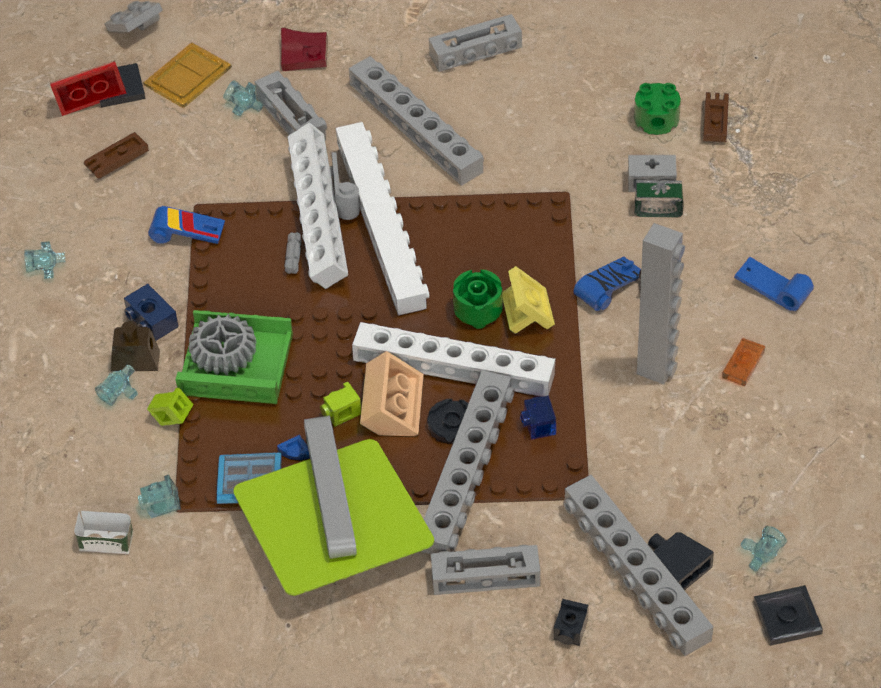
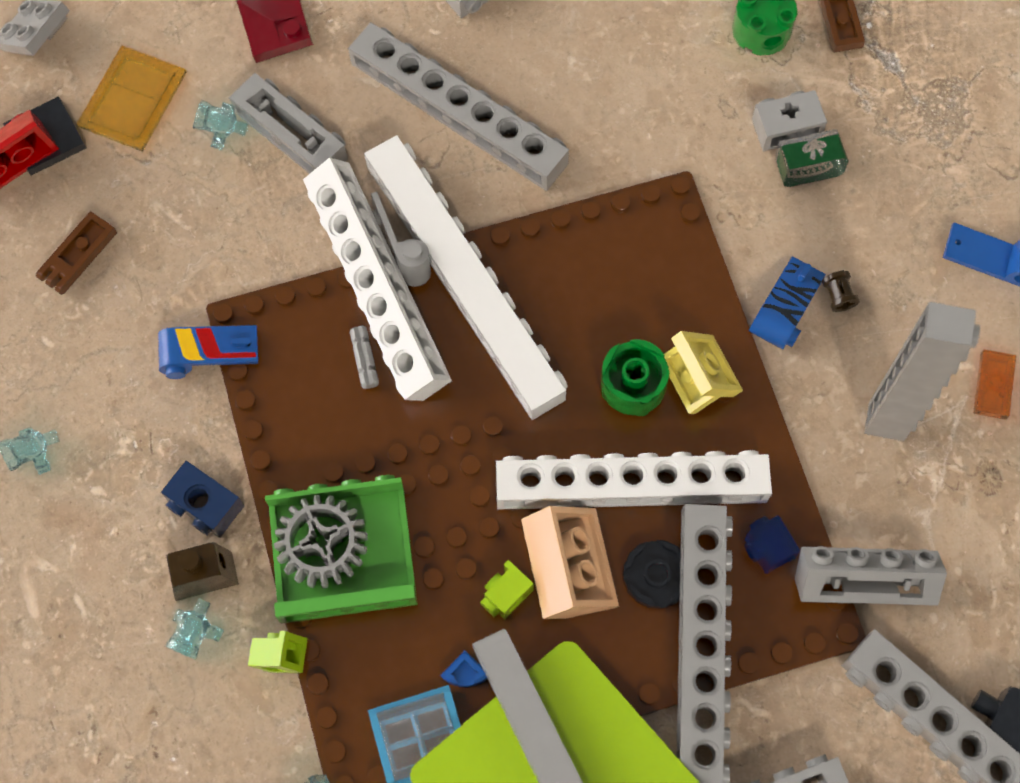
camera: 15 degrees left, 20 degrees up
(566, 434) = (870, 575): none -> light grey brick

